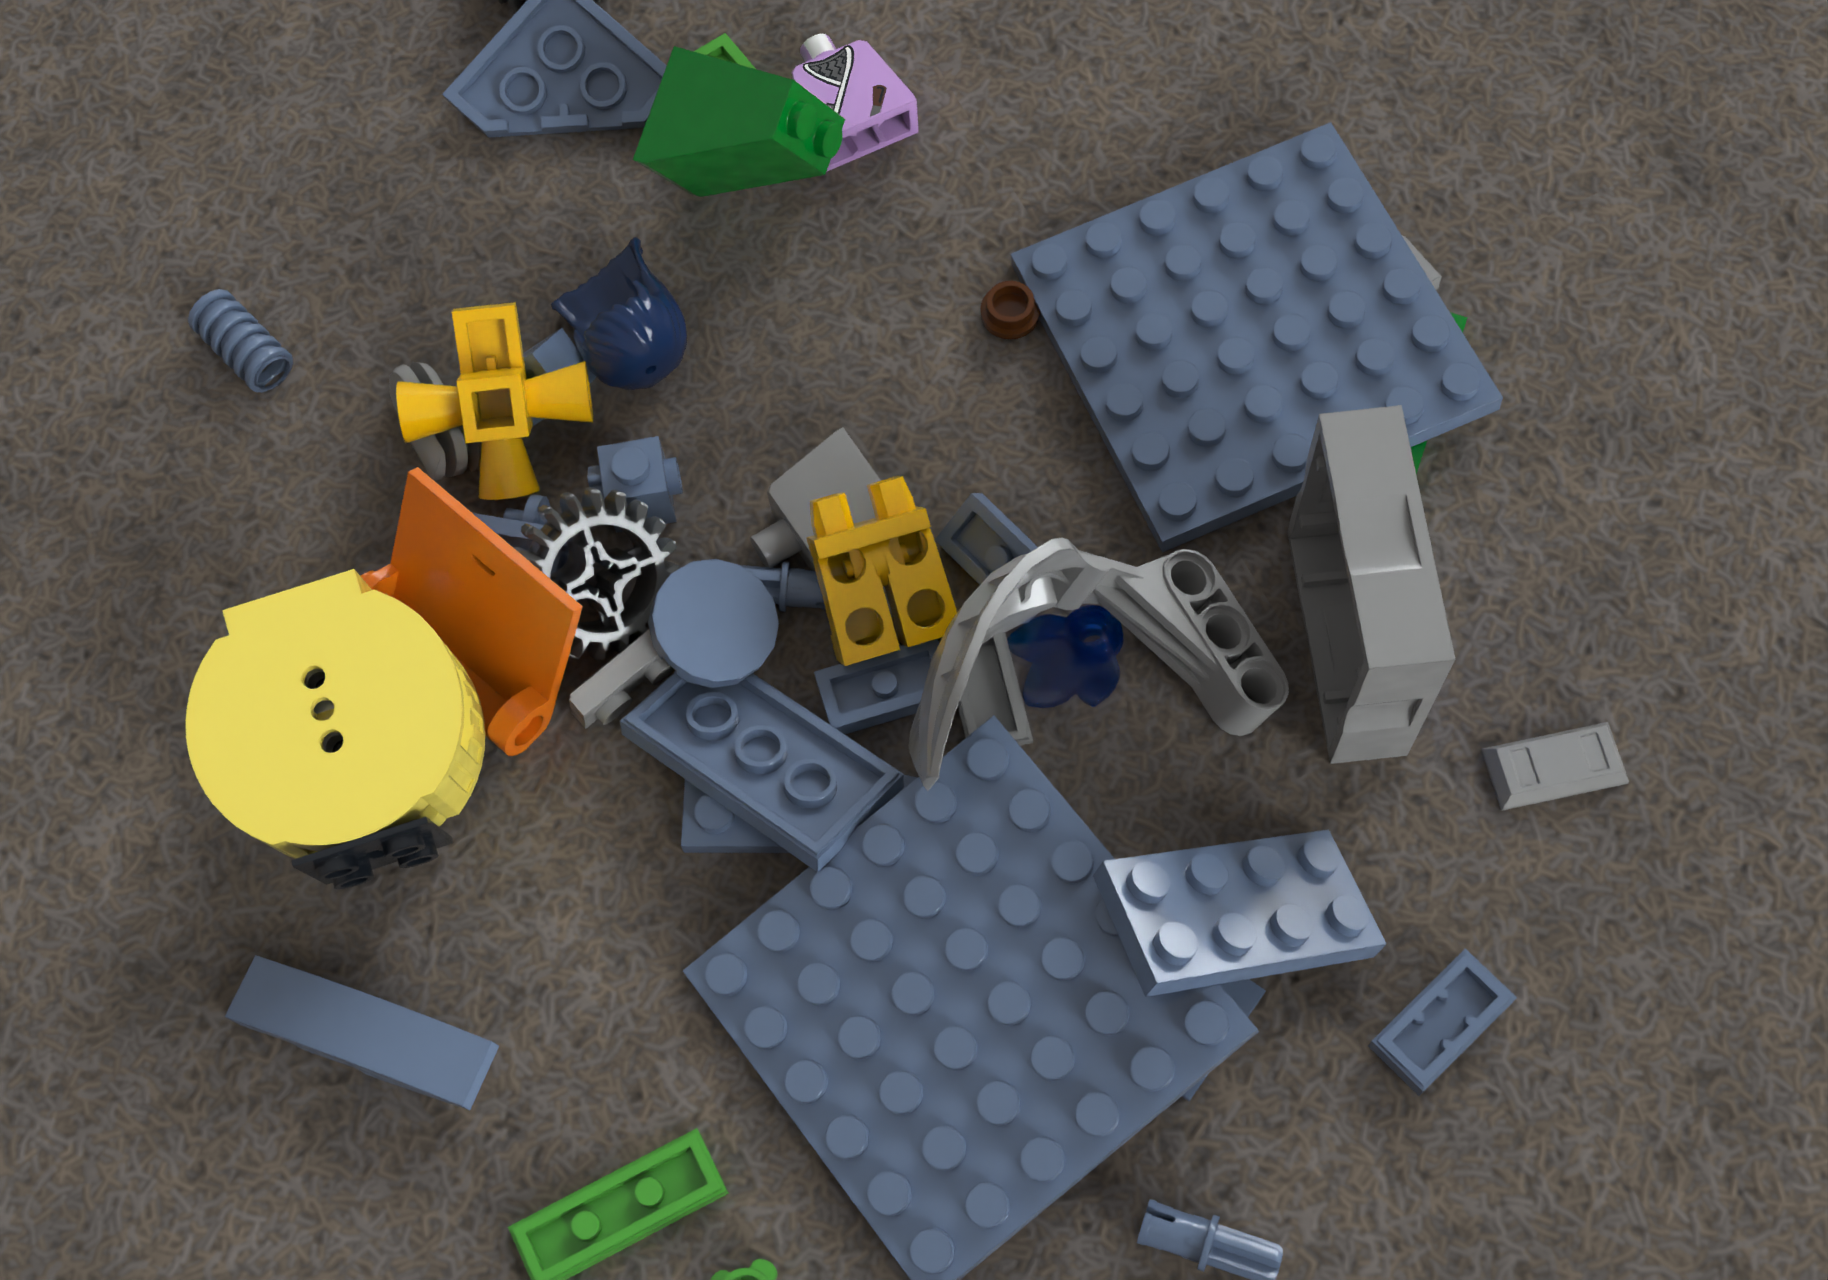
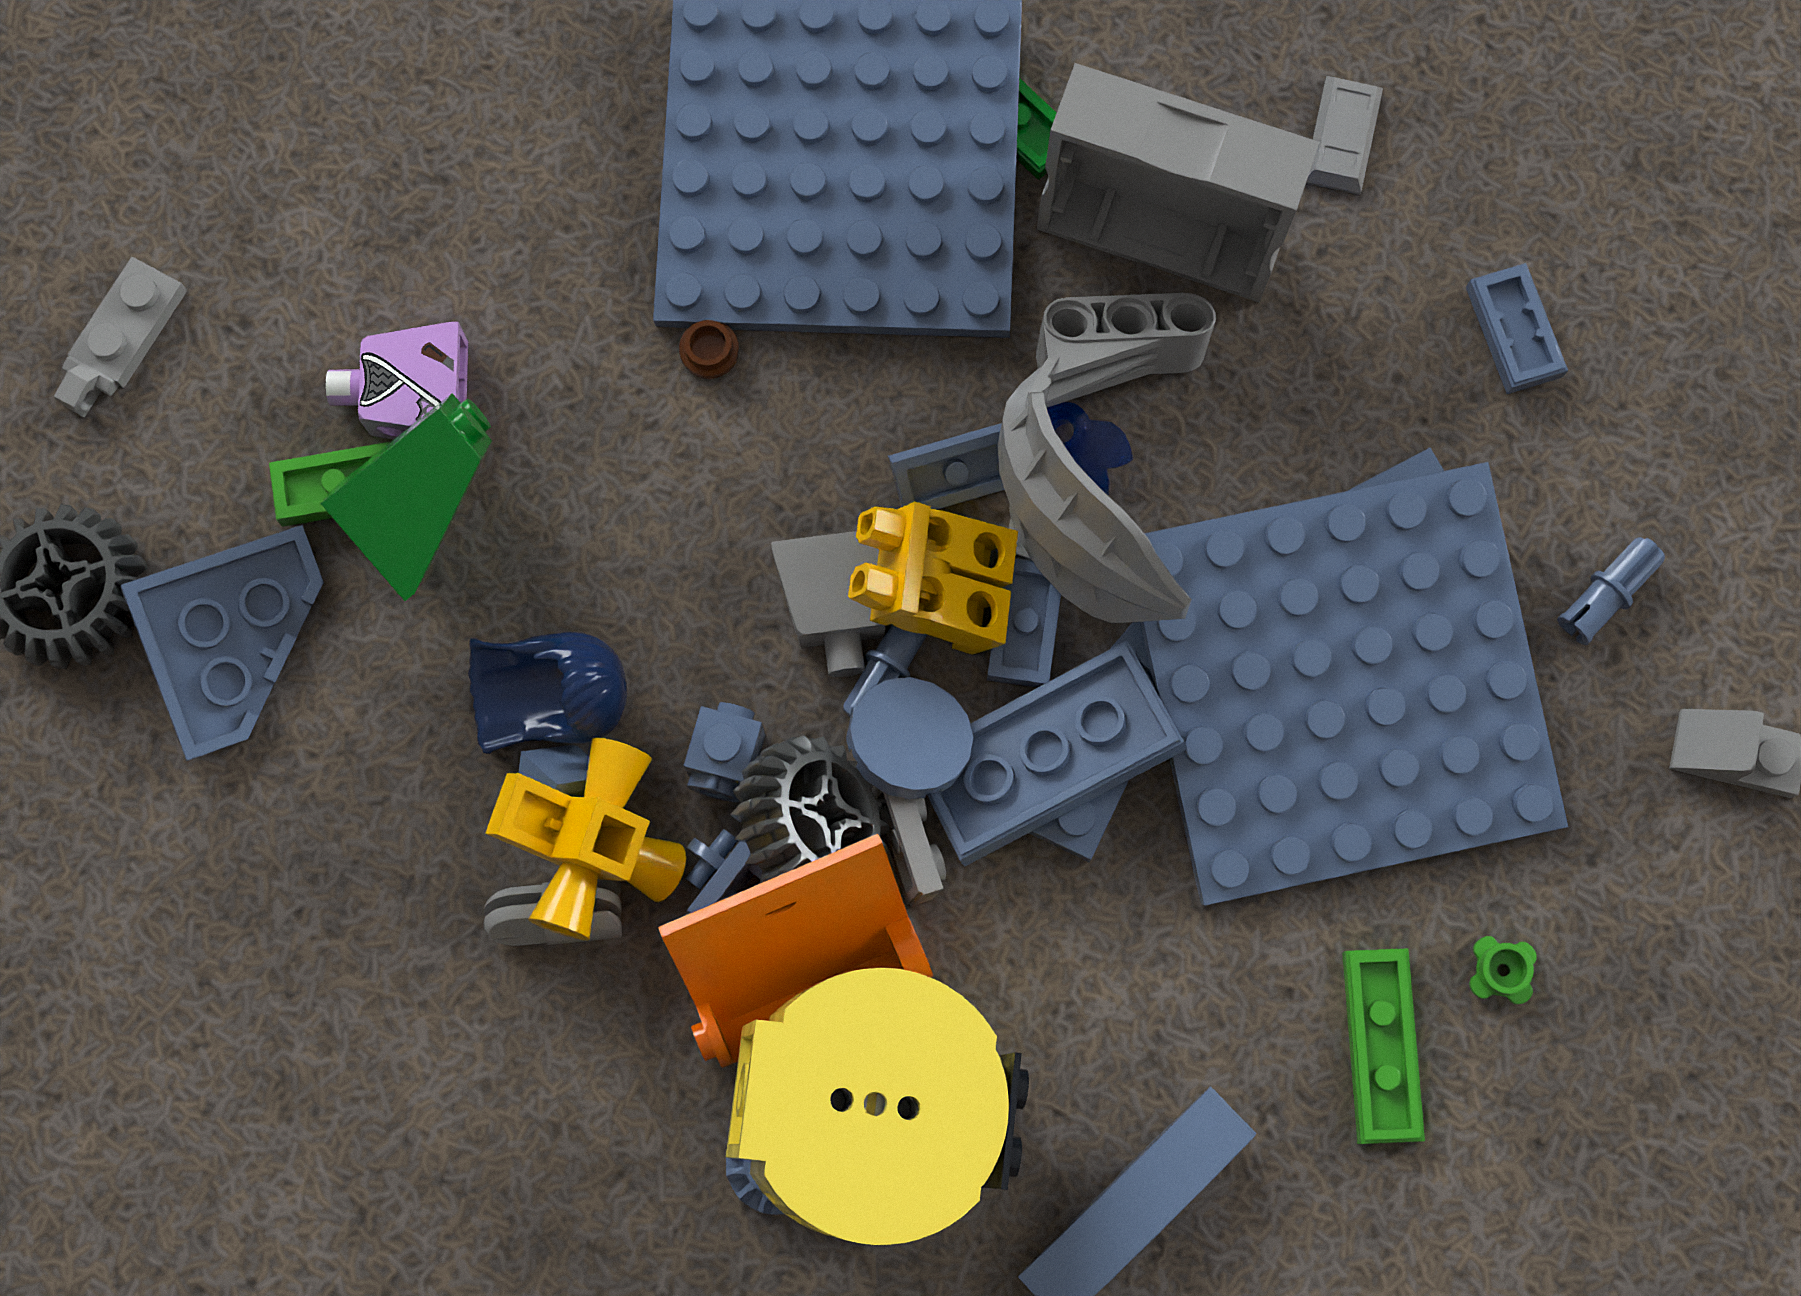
camera: 70 degrees left, 10 degrees up
(239, 340) = (362, 1067): sand blue piece -> none
(1237, 911) = (1377, 431): sand blue plate -> none

